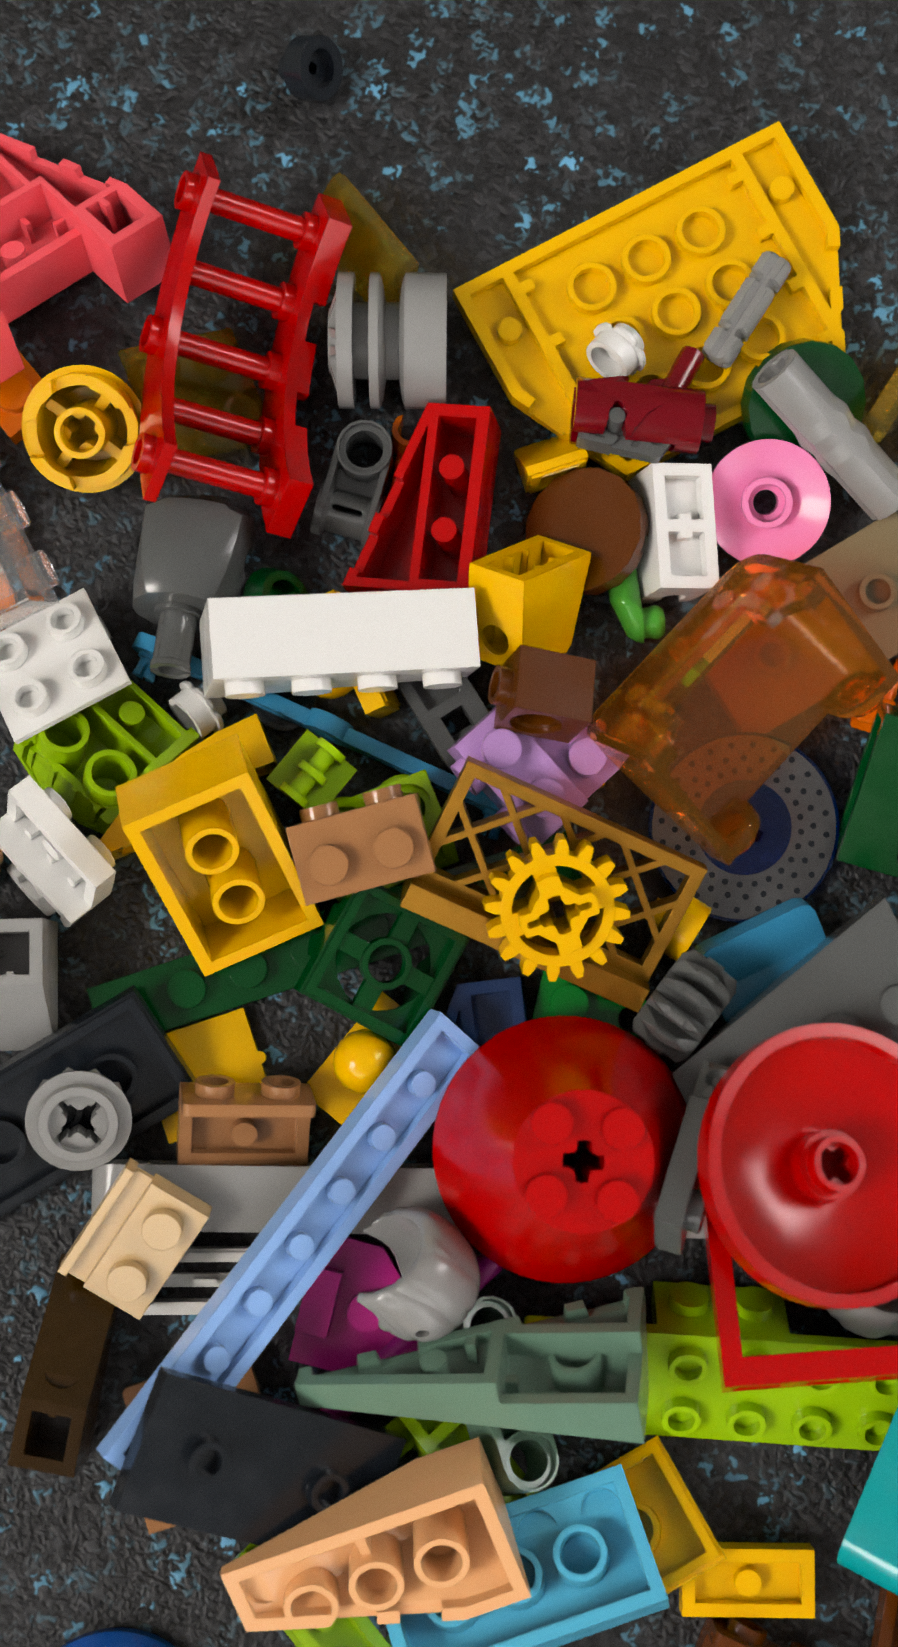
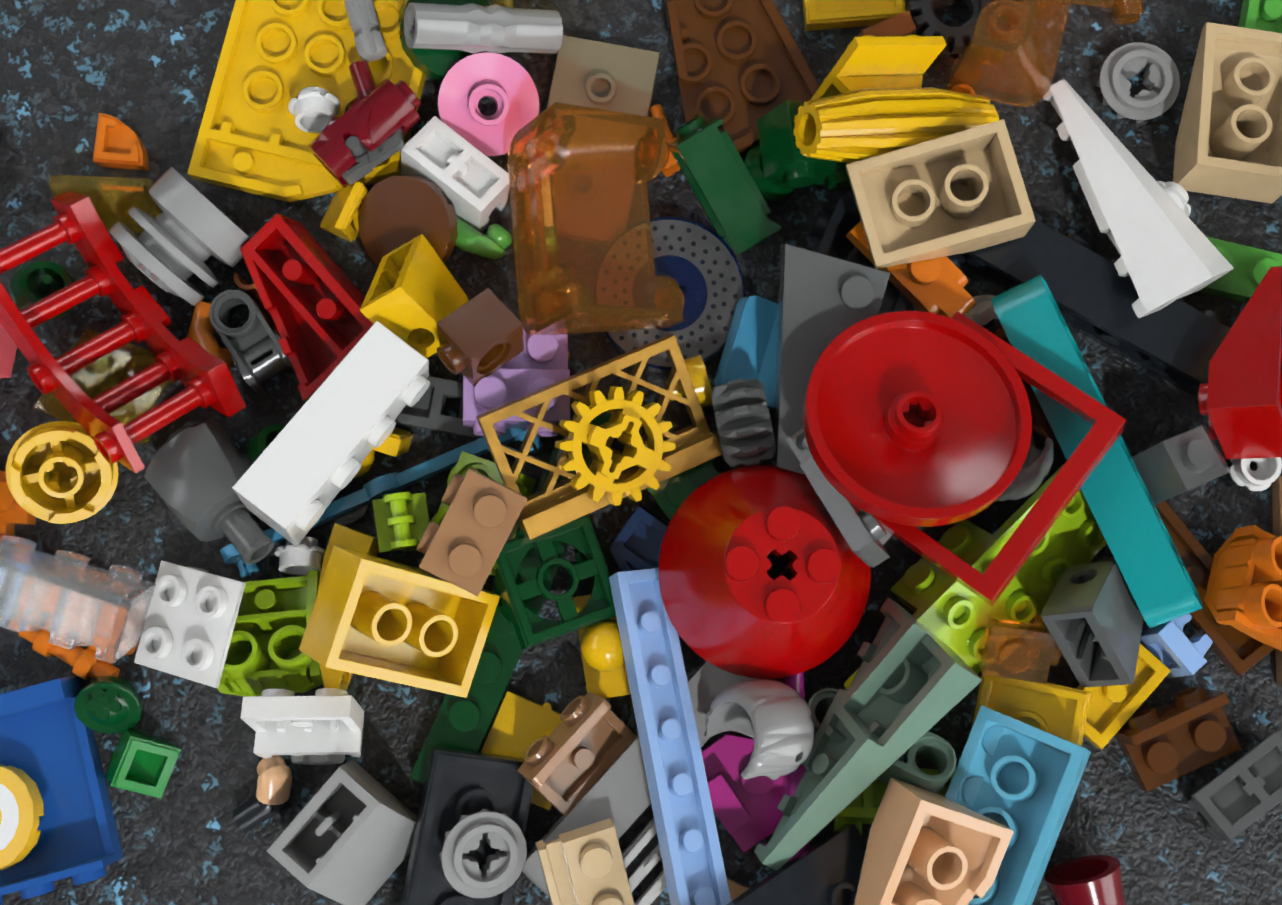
camera: 45 degrees left, 0 degrees up
(234, 249) = (38, 281): none -> dark green hat
(320, 436) = (203, 333): none -> orange arm
(422, 203) = (118, 145): none -> orange tile
(706, 1455) = (1018, 650): none -> clear orange bracket
(794, 1505) = (1095, 623): none -> dark grey torso
(838, 1603) = (1174, 649): none -> light blue tile

